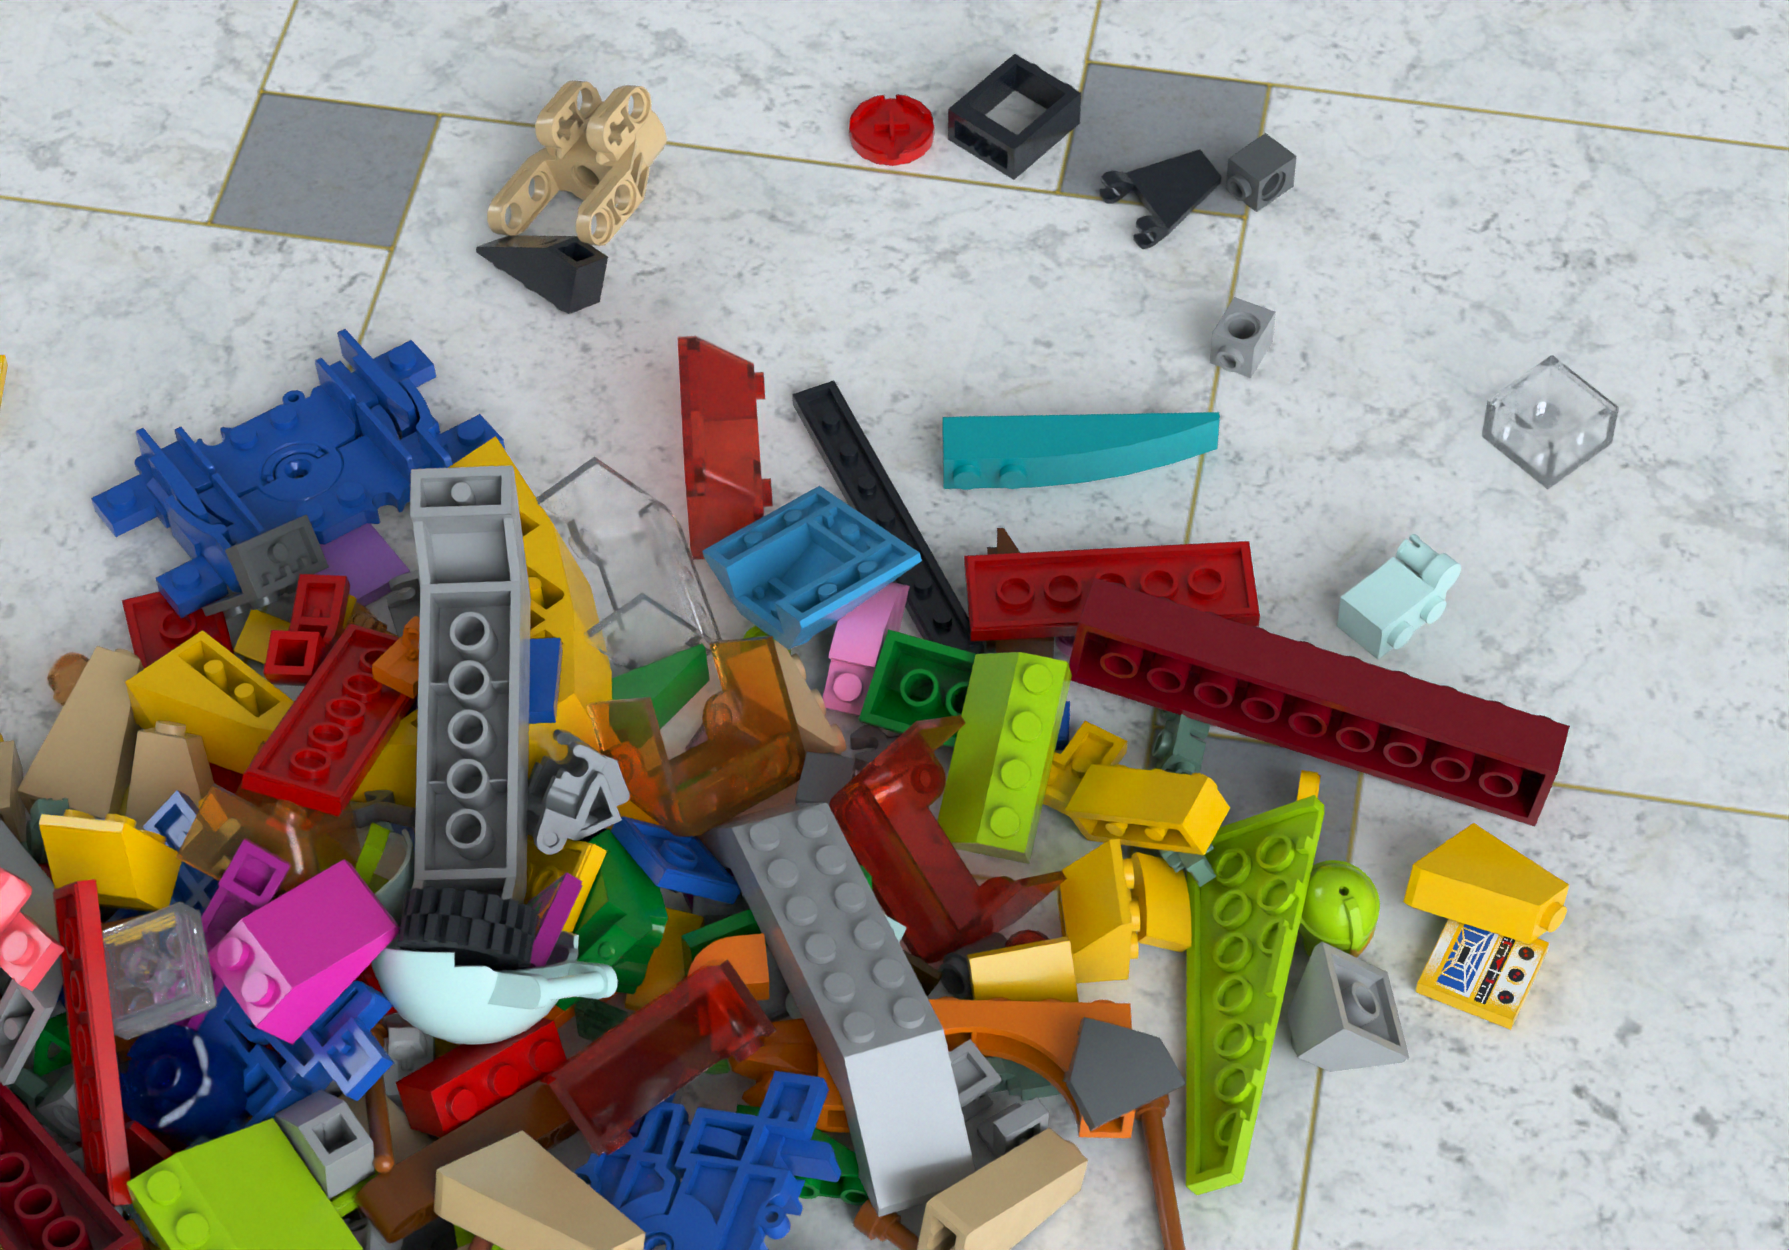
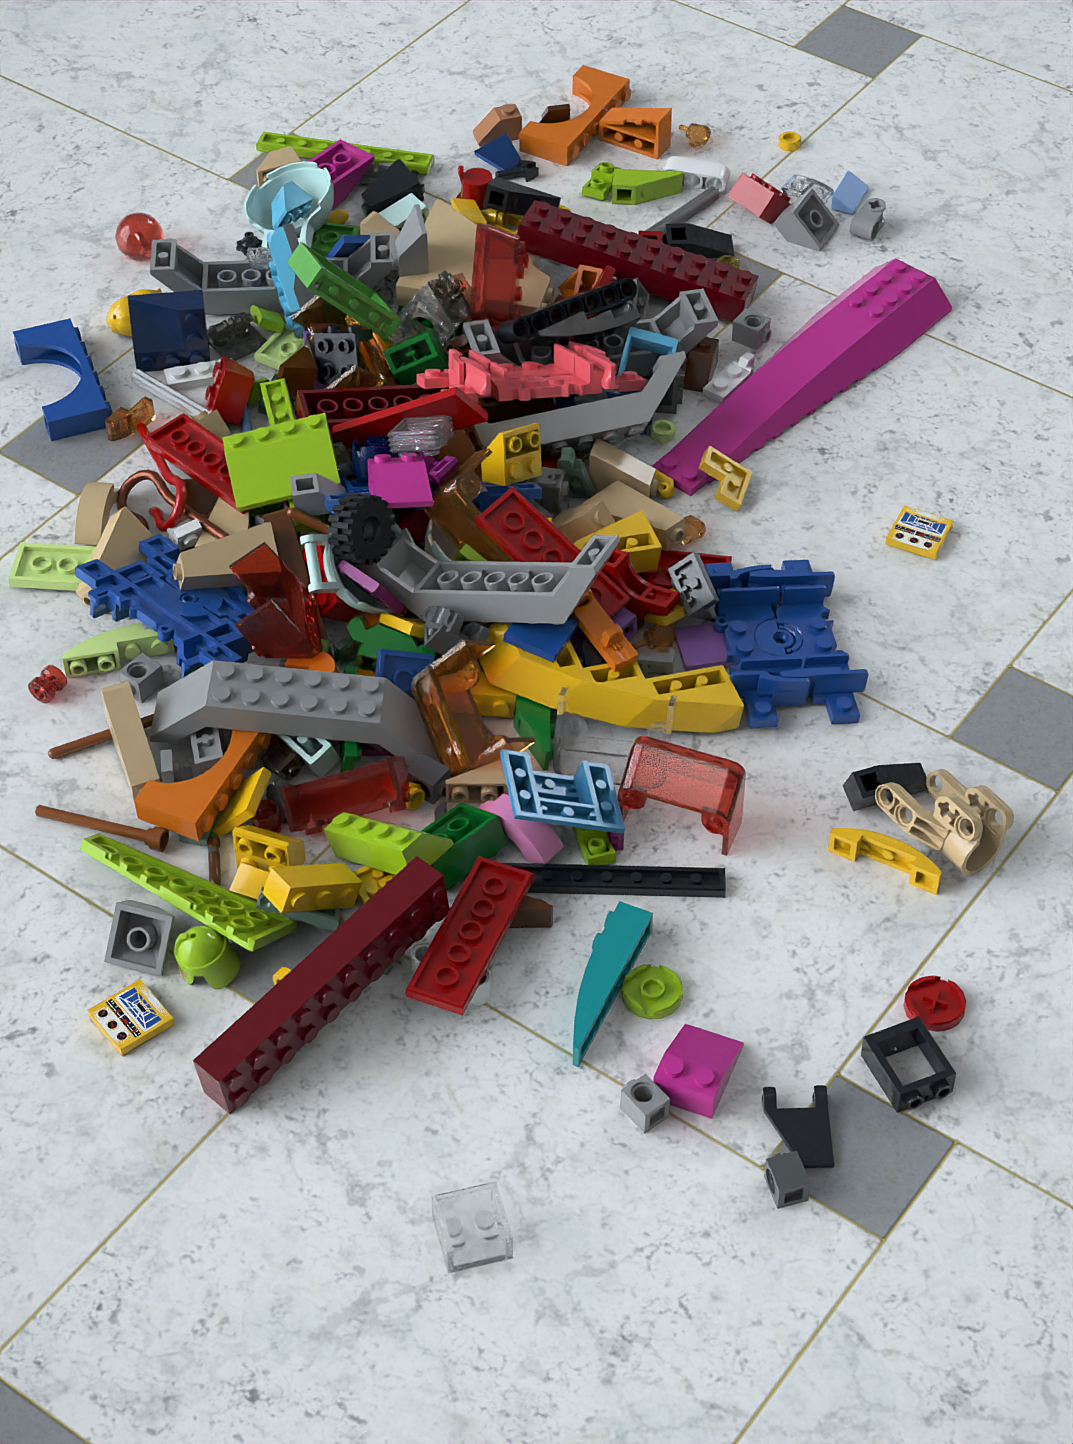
camera: 115 degrees right, 5 degrees down
(677, 197) = (889, 851): none -> yellow slope
(1049, 392) = (652, 991): none -> lime tile
(1118, 1071) = (153, 793): dark grey slope -> none
(1149, 308) = (697, 1069): none -> dark pink slope
(1157, 997) = (214, 858): none -> reddish brown piece
(1398, 597) = (391, 1085): light aqua hinge -> none
(1487, 887) = (167, 1028): yellow slope -> none

